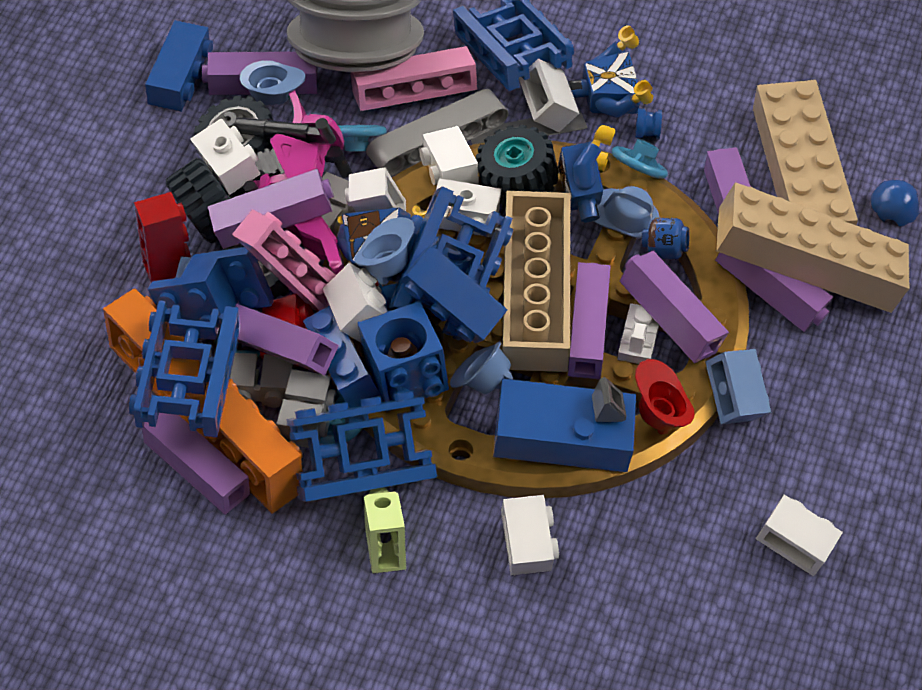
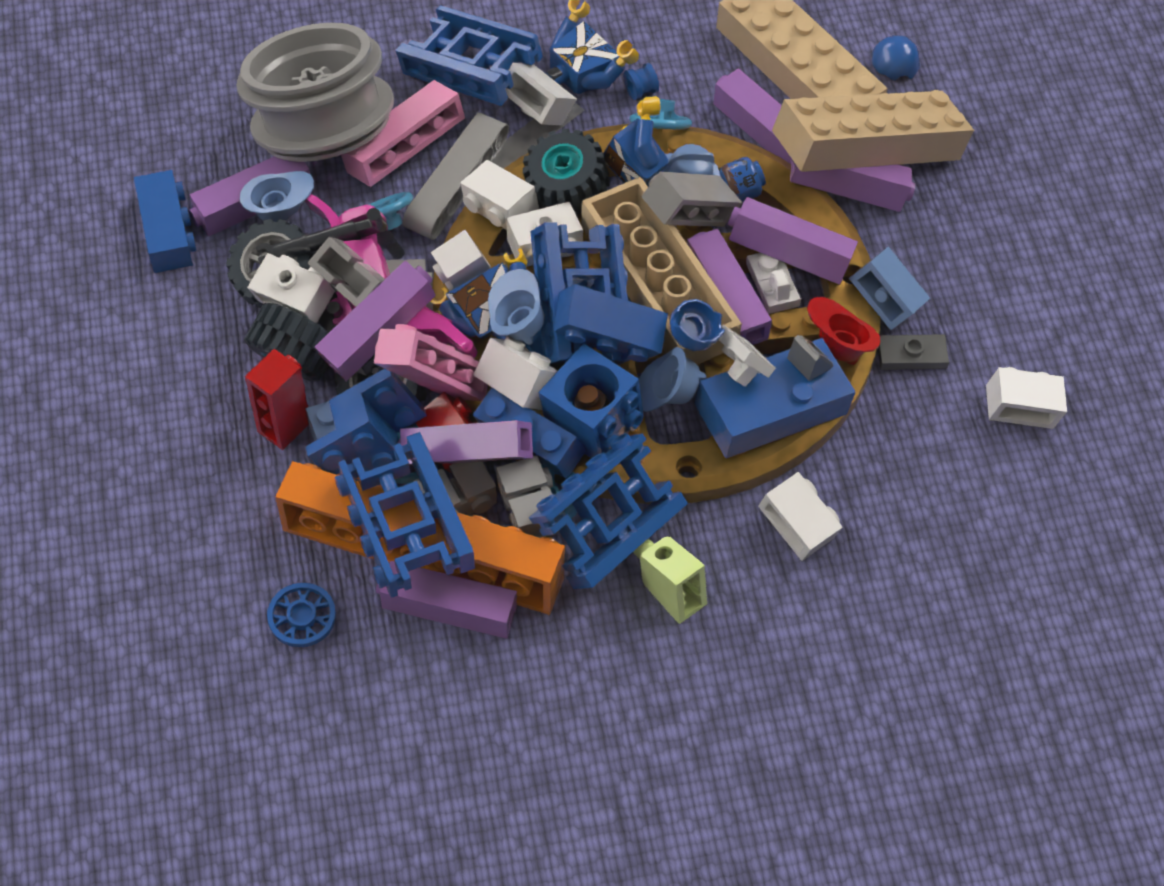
camera: 30 degrees left, 5 degrees up
(77, 416) = (301, 615): none -> blue wheel
(269, 151) = (340, 264): none -> light grey piece
(522, 329) = (696, 325): none -> blue hair
(551, 373) = (746, 358): none -> white hinge
(600, 229) = (691, 199): none -> light grey brick
(730, 452) = (913, 352): none -> dark grey plate

